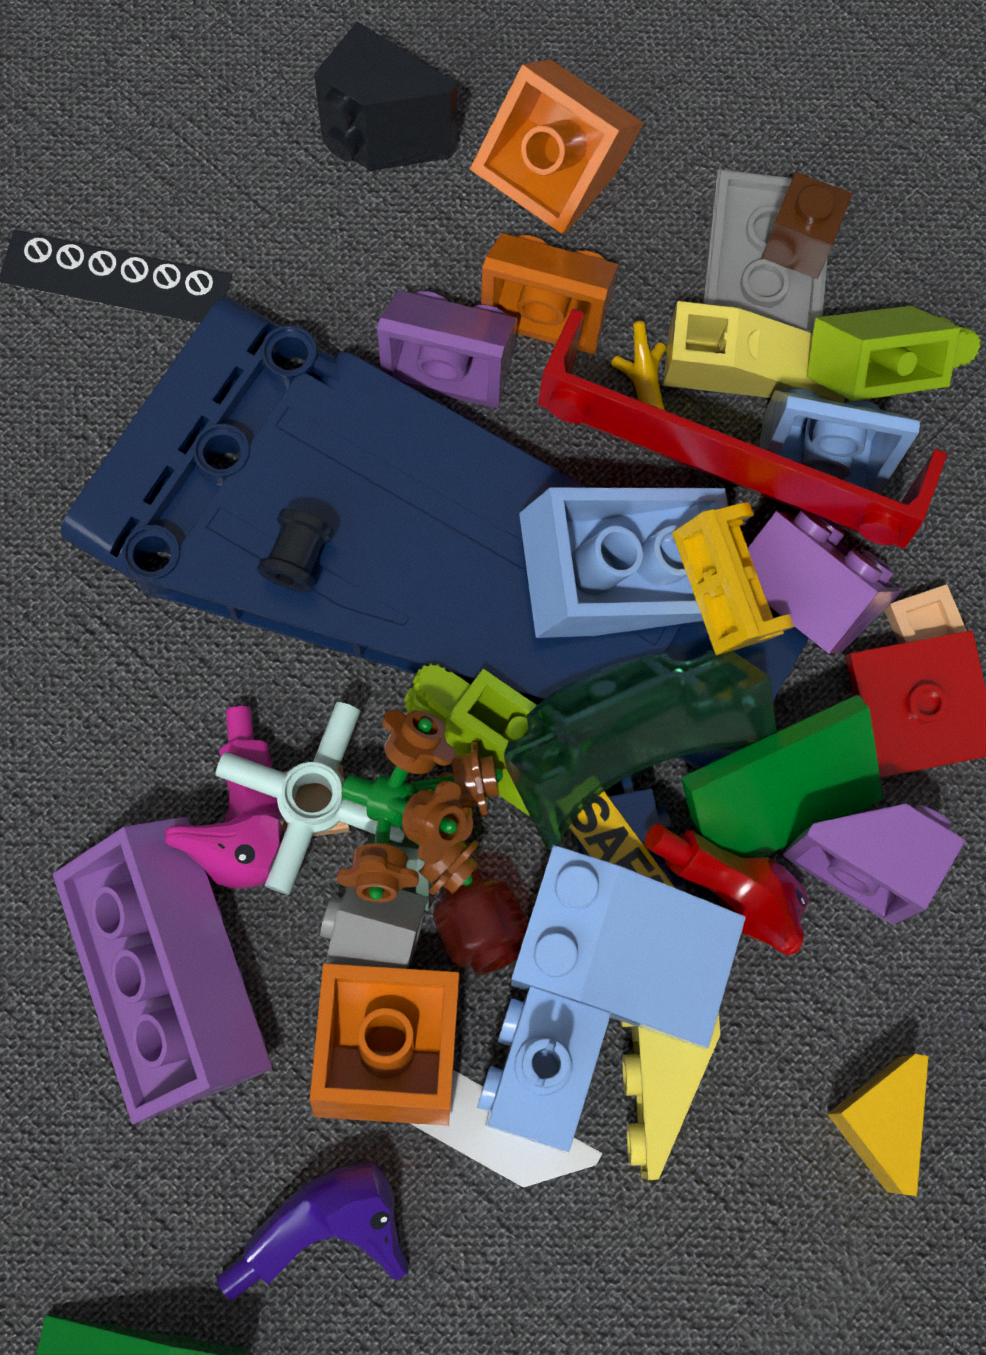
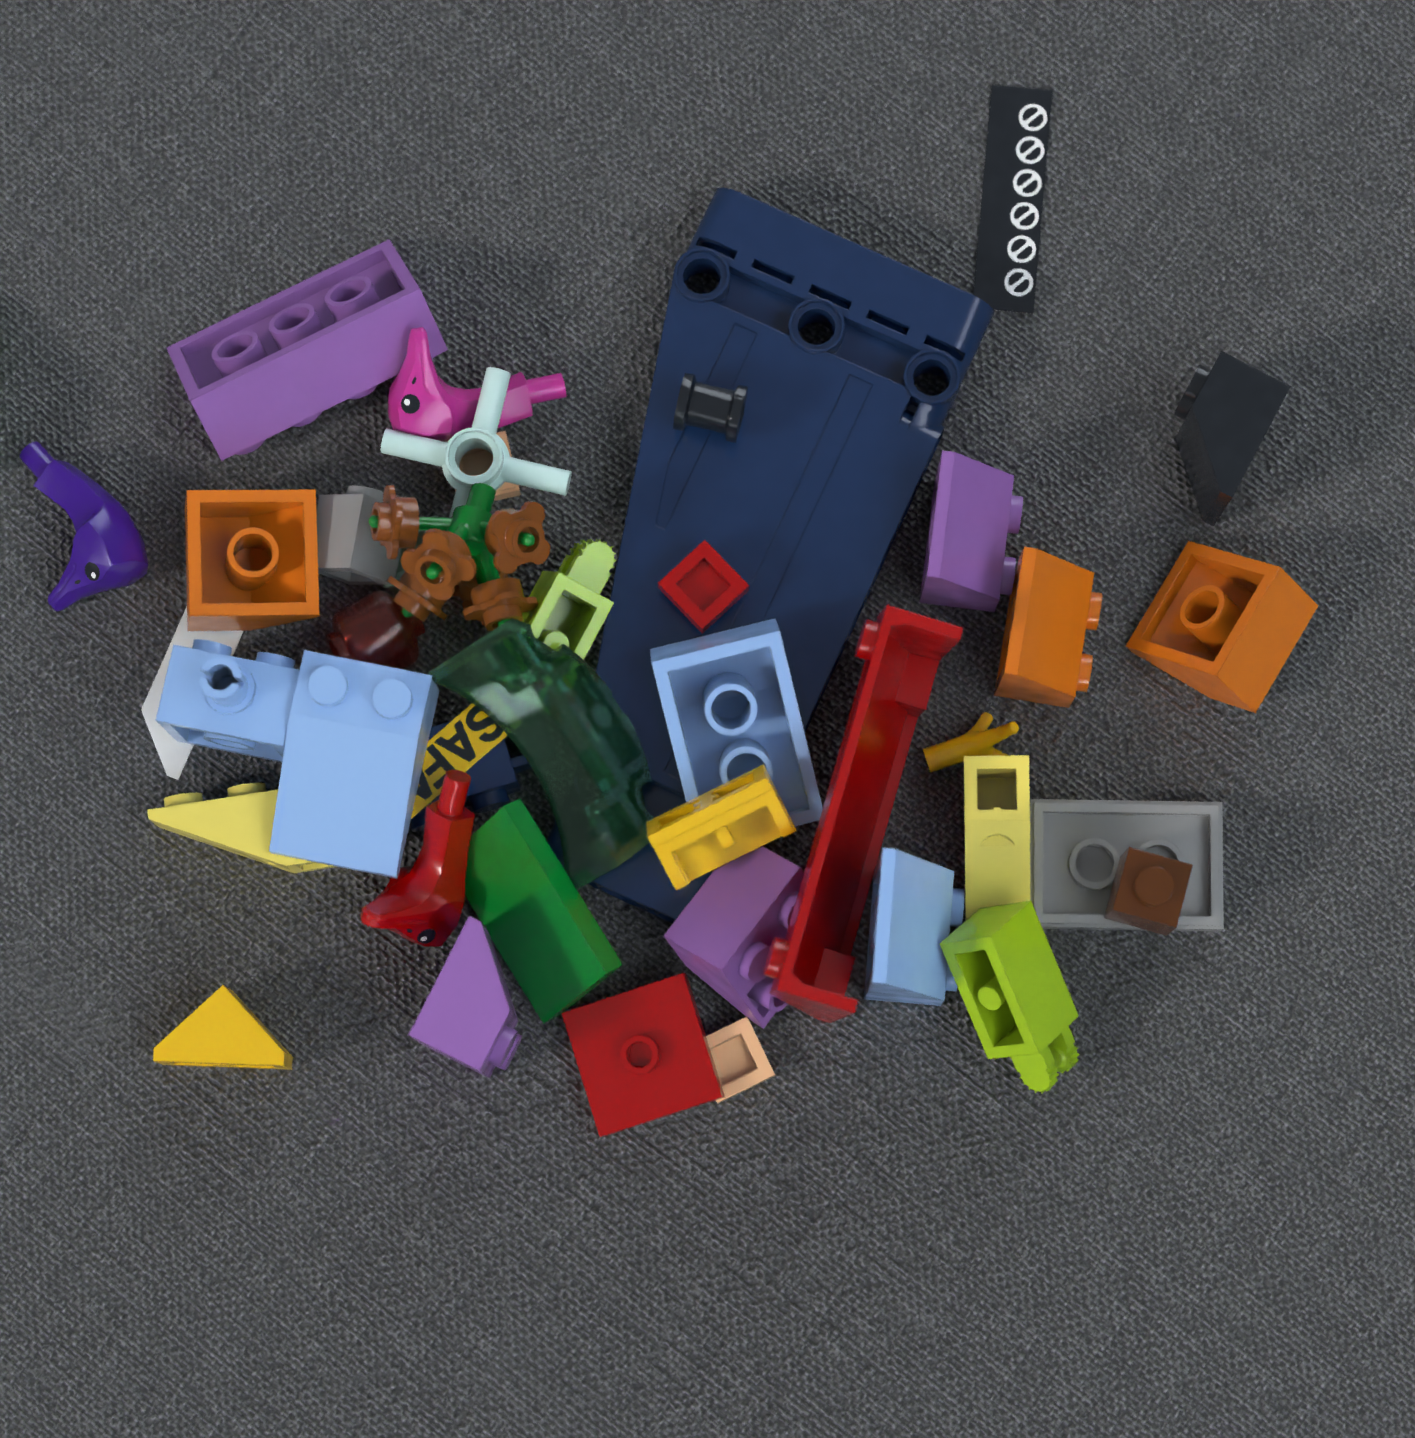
camera: 90 degrees right, 5 degrees up
(478, 578) = (703, 586): none -> red plate

